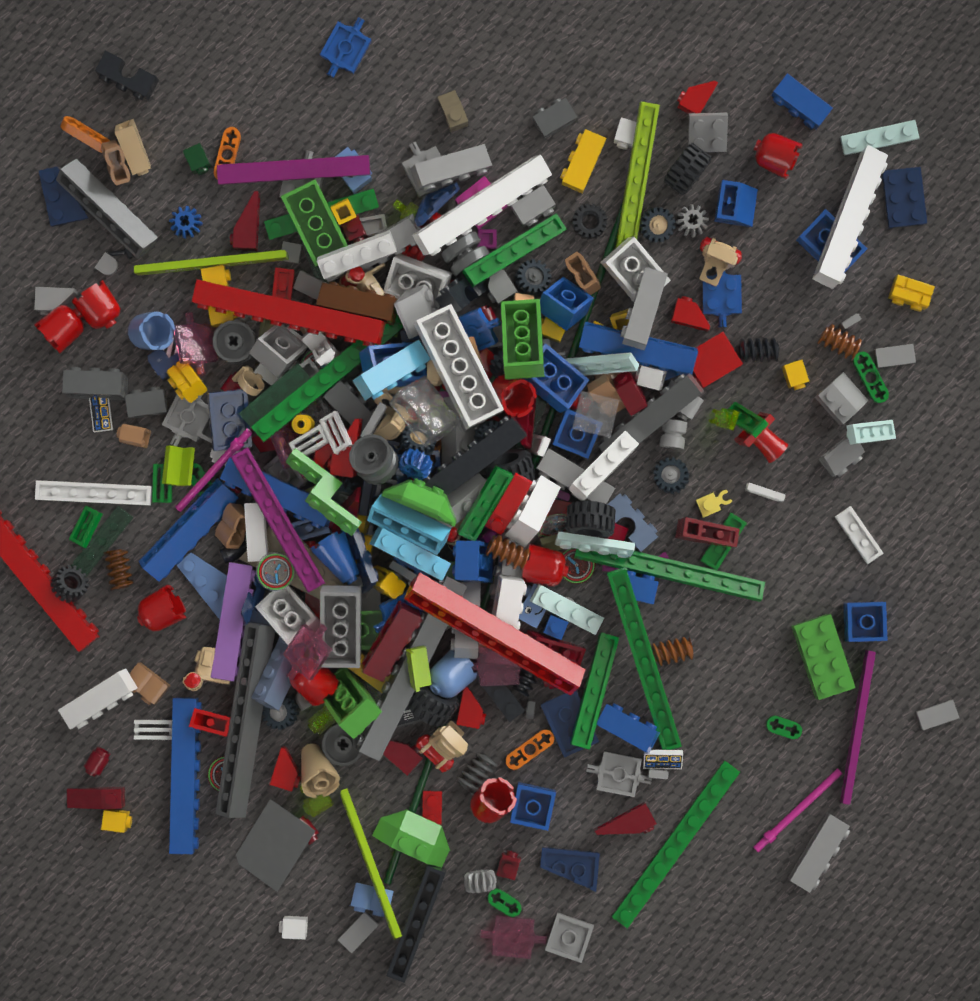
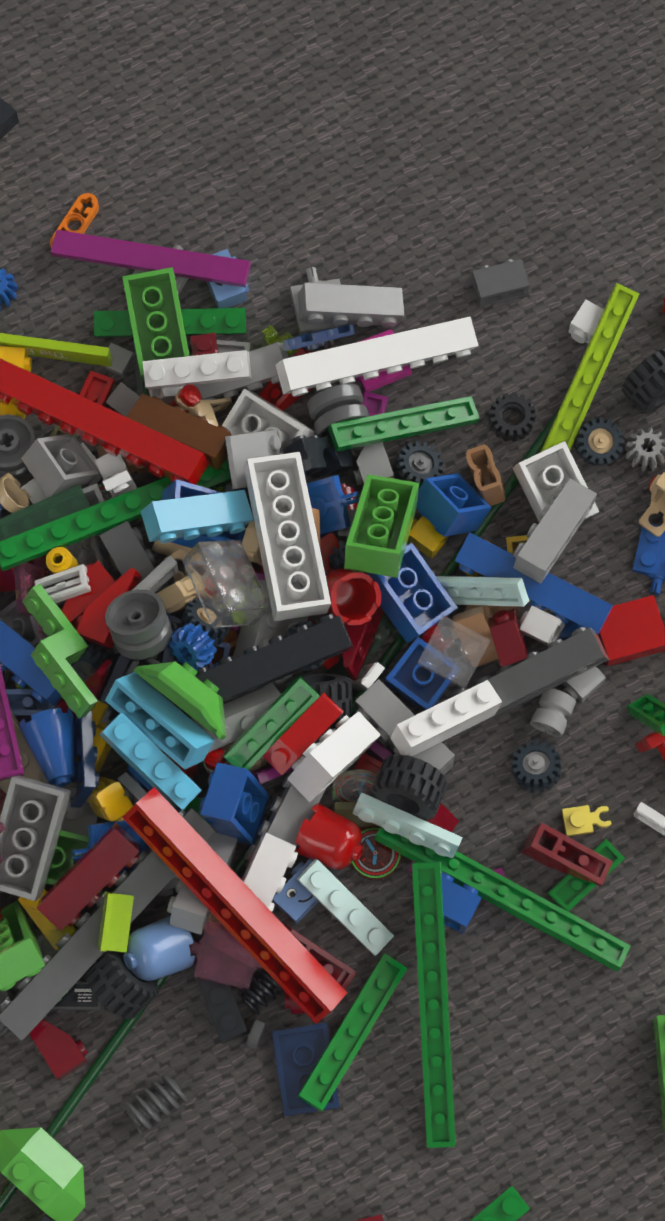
camera: 15 degrees right, 15 degrees down
(197, 159) = (35, 219): dark green brick -> none
(247, 227) = (72, 311): dark red slope -> none
(342, 447) = (109, 576): white tile -> none
(343, 211) = (197, 319): yellow brick -> none
(345, 47) = (261, 138): blue plate -> none
(432, 806) = (80, 1135): red plate -> none
(443, 746) = (118, 1050): tan piece -> none
(453, 111) = (373, 245): dark tan slope -> none
(470, 711) = (171, 1013): red slope -> none
(493, 800) = (165, 1146): red cylinder -> none
(507, 551) = (283, 801): dark orange piece -> none
(530, 741) = (235, 1103): orange beam -> none
(533, 206) = (444, 380): light grey brick -> none
(533, 806) = (220, 1173): blue brick -> none
(555, 627) = (322, 928): blue brick -> none
(582, 160) = (523, 341): yellow brick -> none
(619, 774) = (355, 1163): light grey plate -> none
(628, 727) = (386, 1096): blue brick -> none
(643, 533) = (477, 834): sand blue arch -> none
(658, 773) = (411, 1177): light grey tile -> none
(663, 759) = (424, 1158): tile -> none
(673, 651) = (477, 1006): dark orange piece -> none
(689, 314) = (613, 565): red slope -> none
(725, 418) = (628, 709): clear neon green plate -> none
(781, 731) = (613, 1155): green beam -> none

